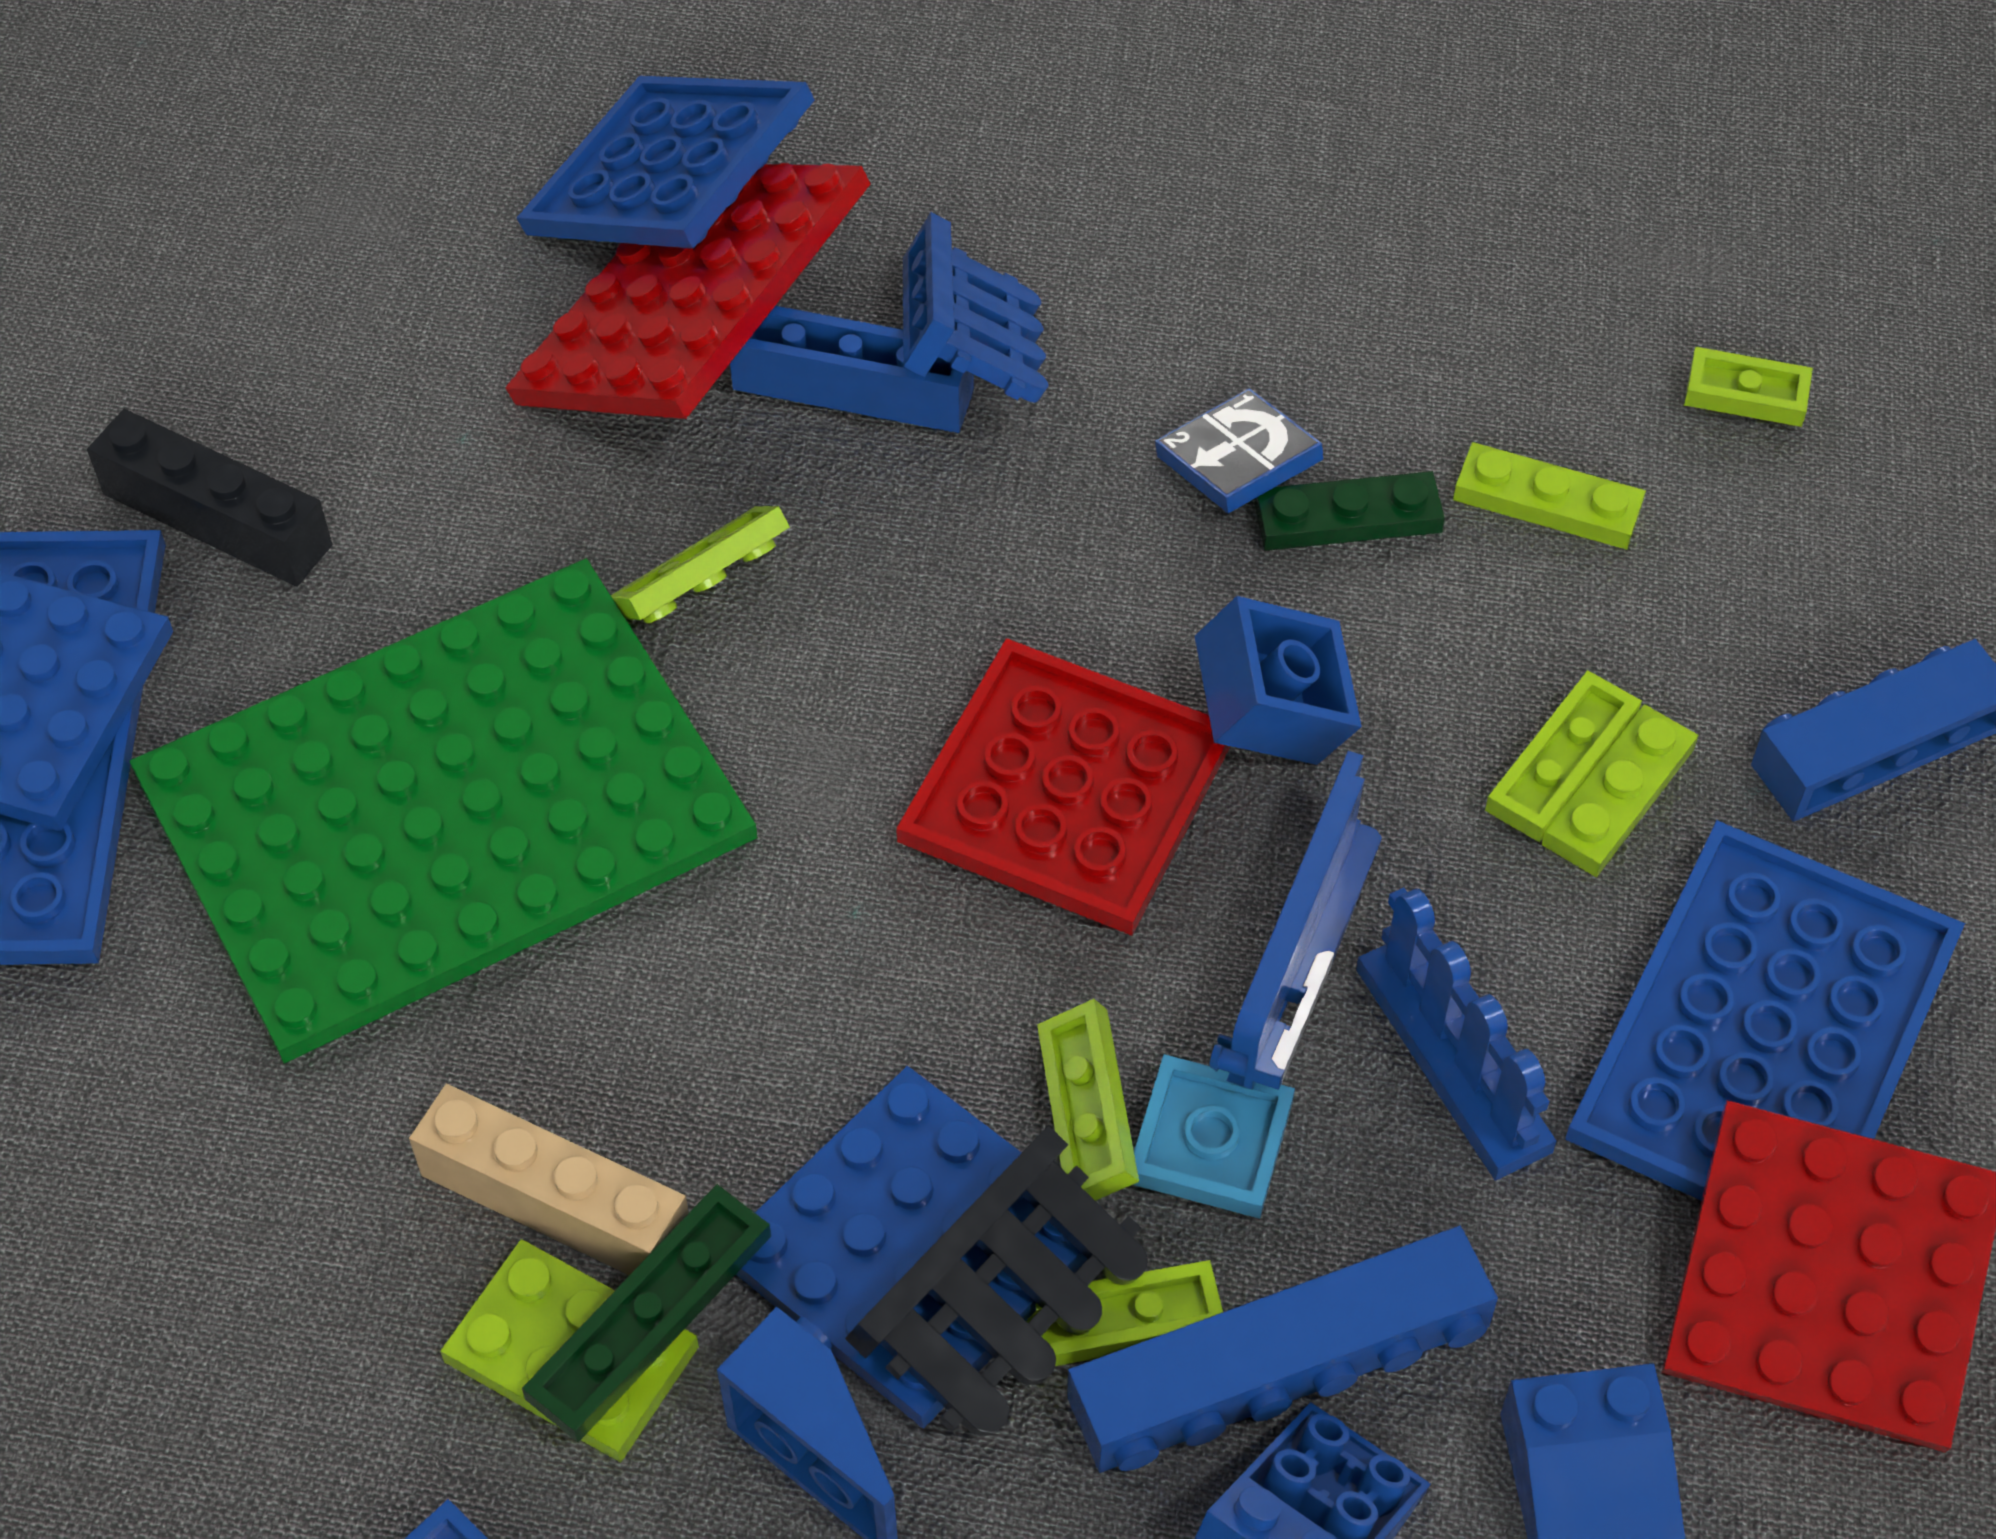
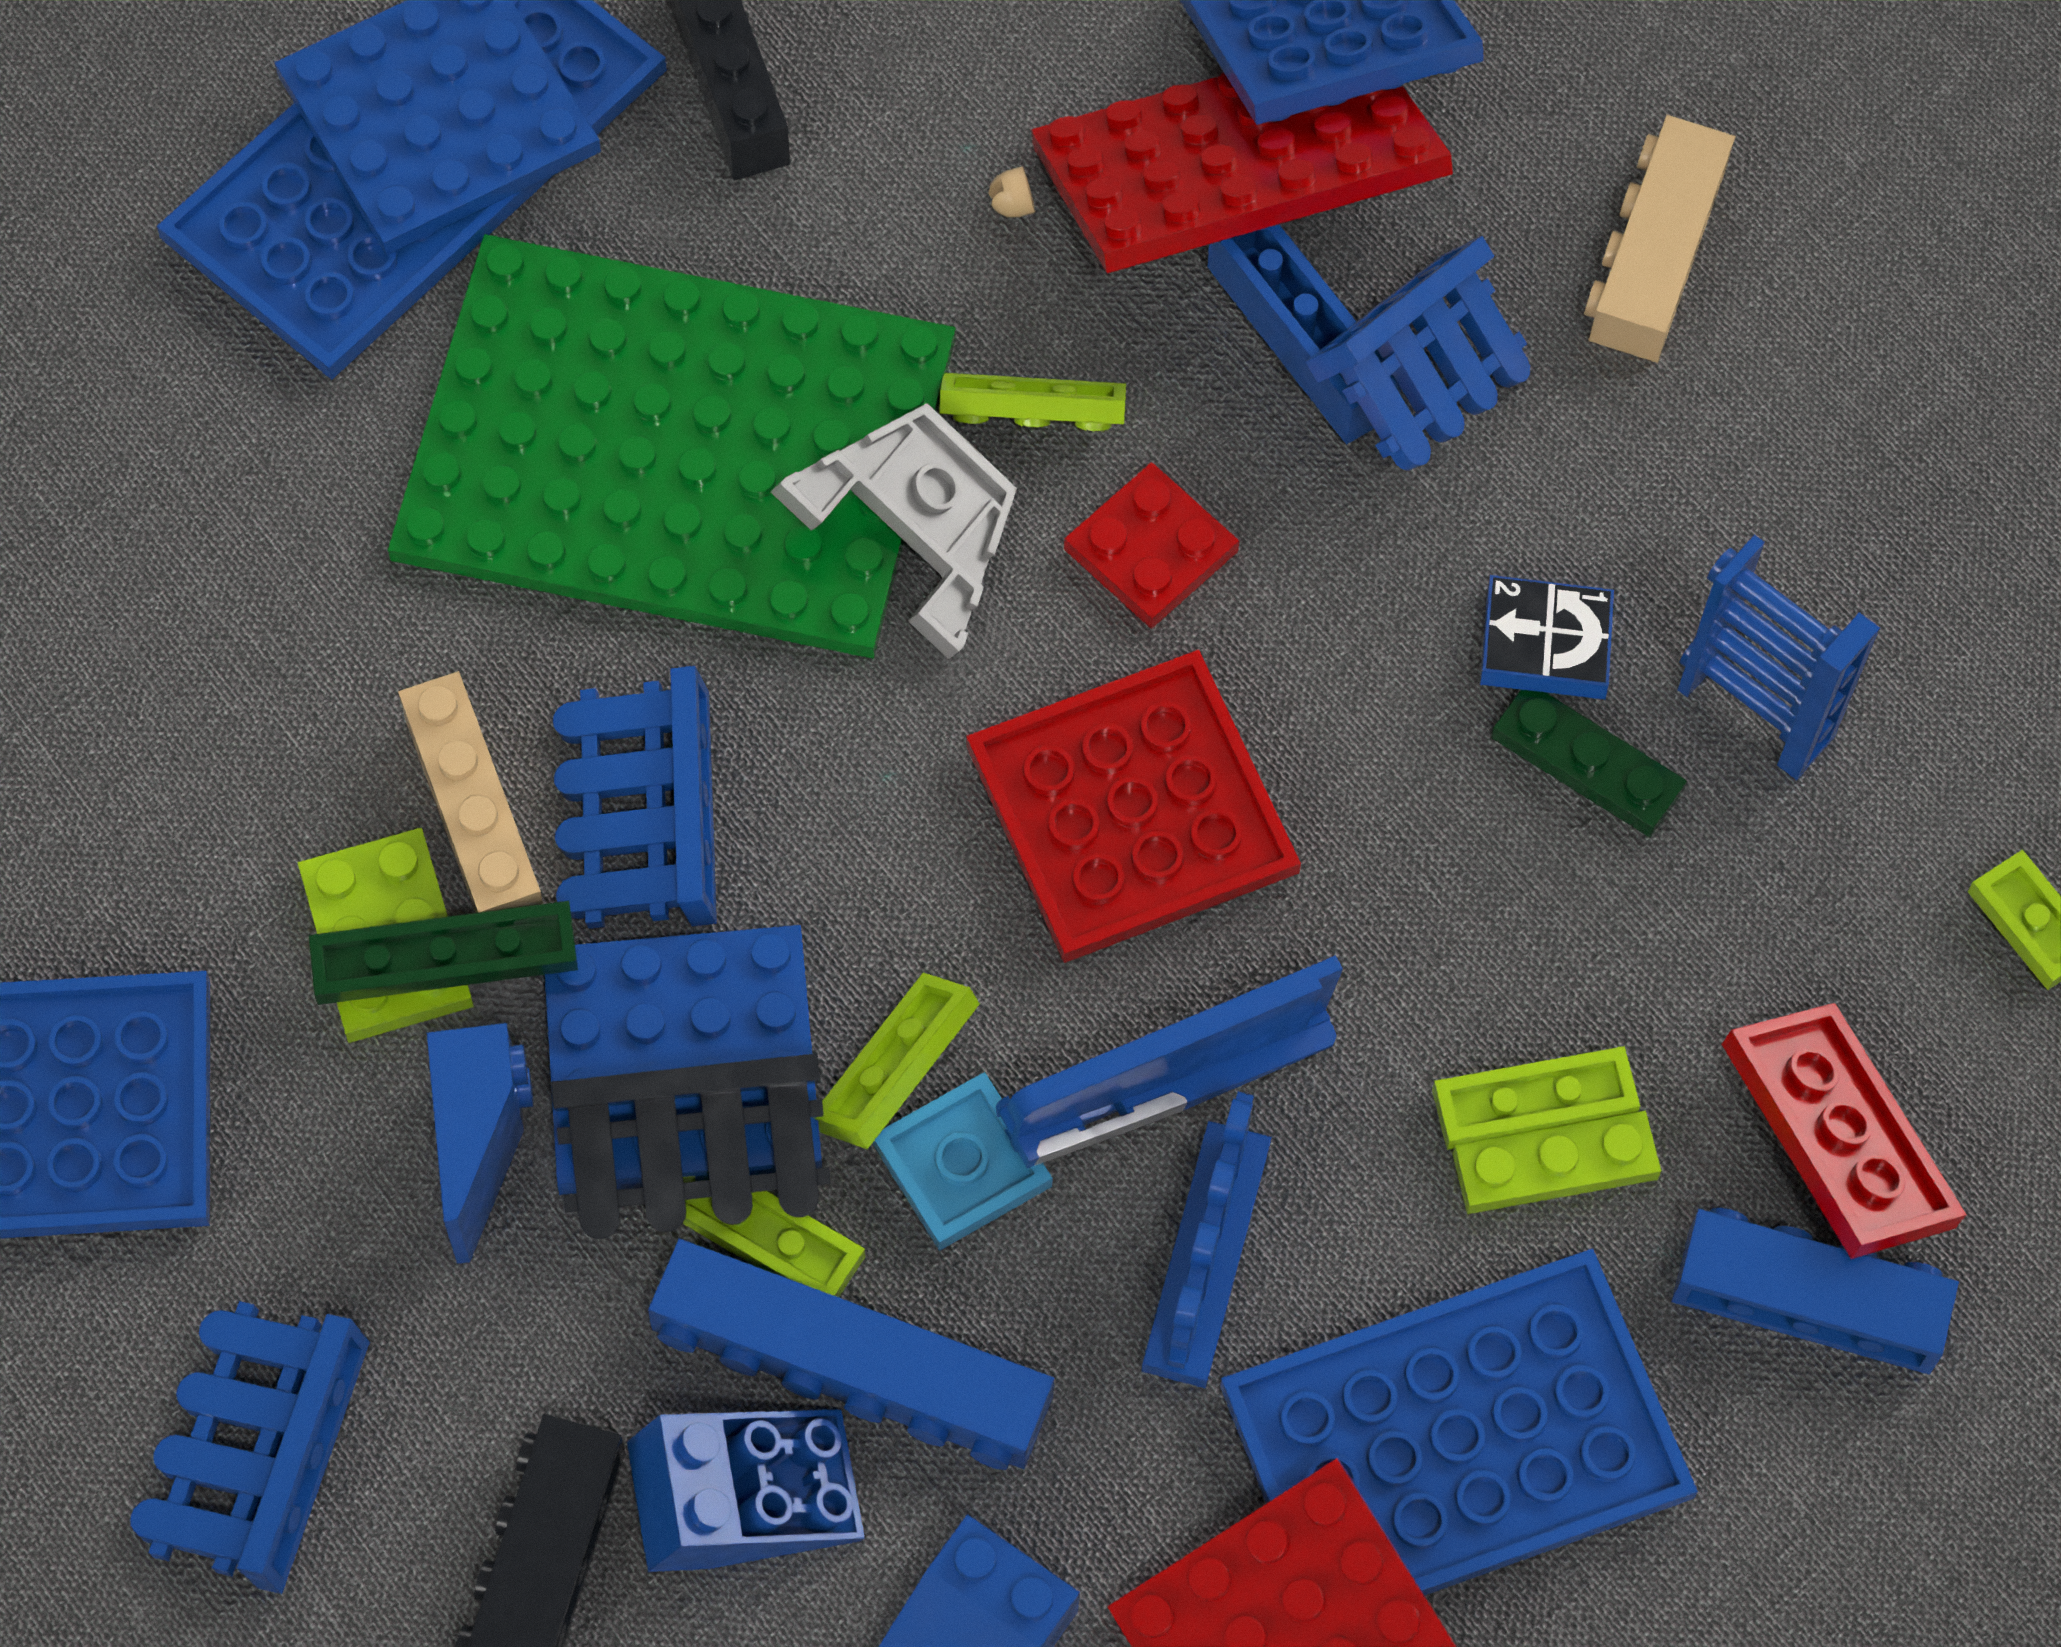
camera: 40 degrees right, 10 degrees up
(536, 438) = (1012, 194): none -> tan hinge
(676, 1045) = (652, 830): none -> blue fence
(698, 679) = (932, 495): none -> wing
(888, 601) = (1151, 545): none -> red plate
(1040, 148) = (1661, 237): none -> tan brick
(1277, 681) = (1356, 854): blue brick -> none
(1484, 344) = (1826, 673): none -> blue fence
(1549, 495) = (1767, 878): lime plate -> none
(1791, 606) = (1843, 1130): none -> plate

